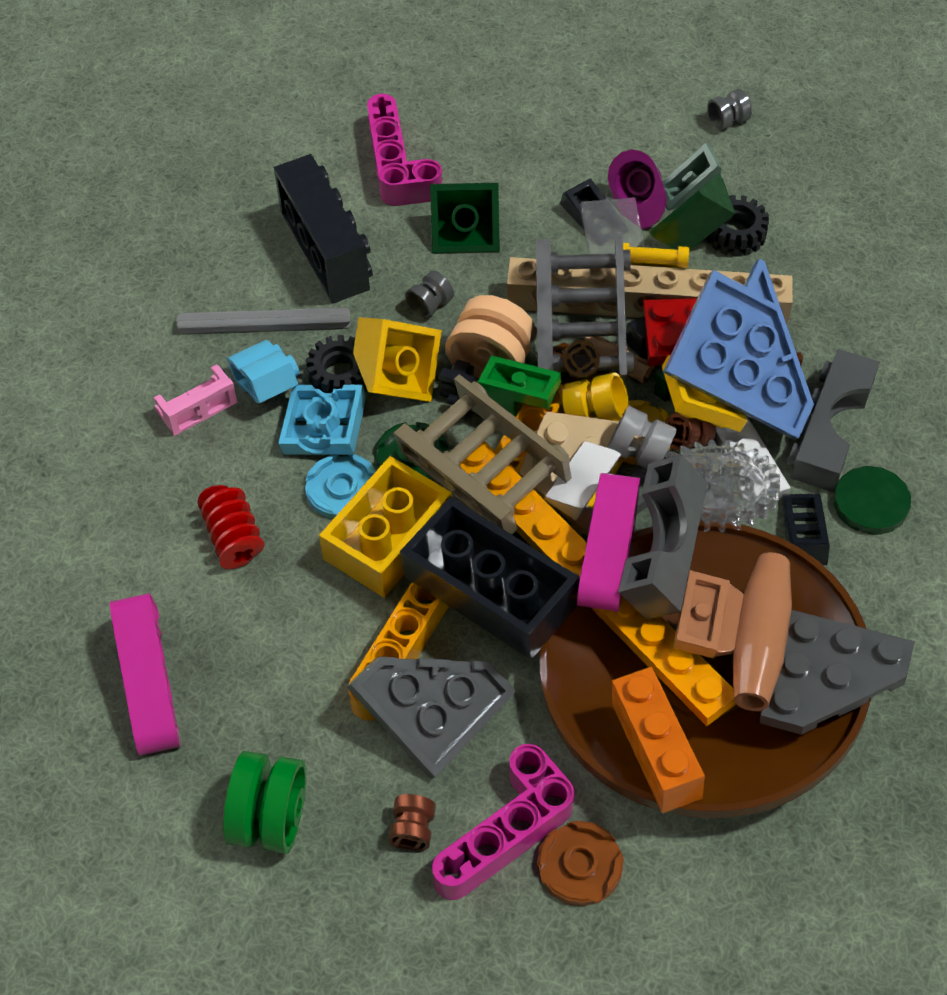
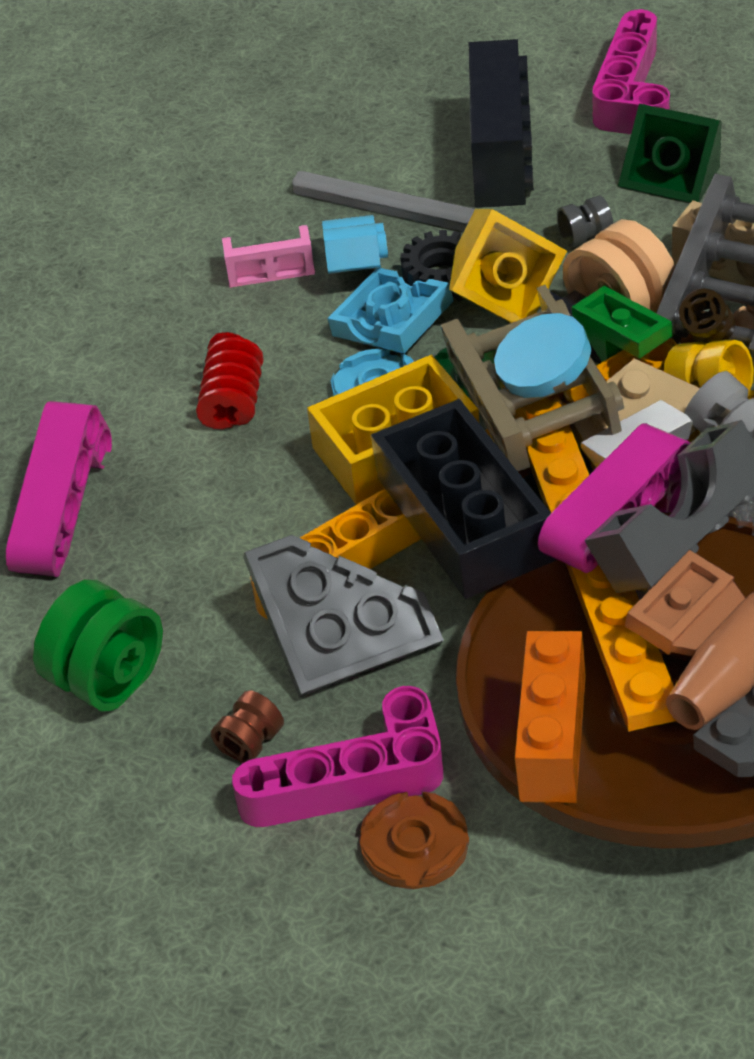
camera: 30 degrees right, 10 degrees down
(493, 438) = (542, 355): none -> medium azure tile

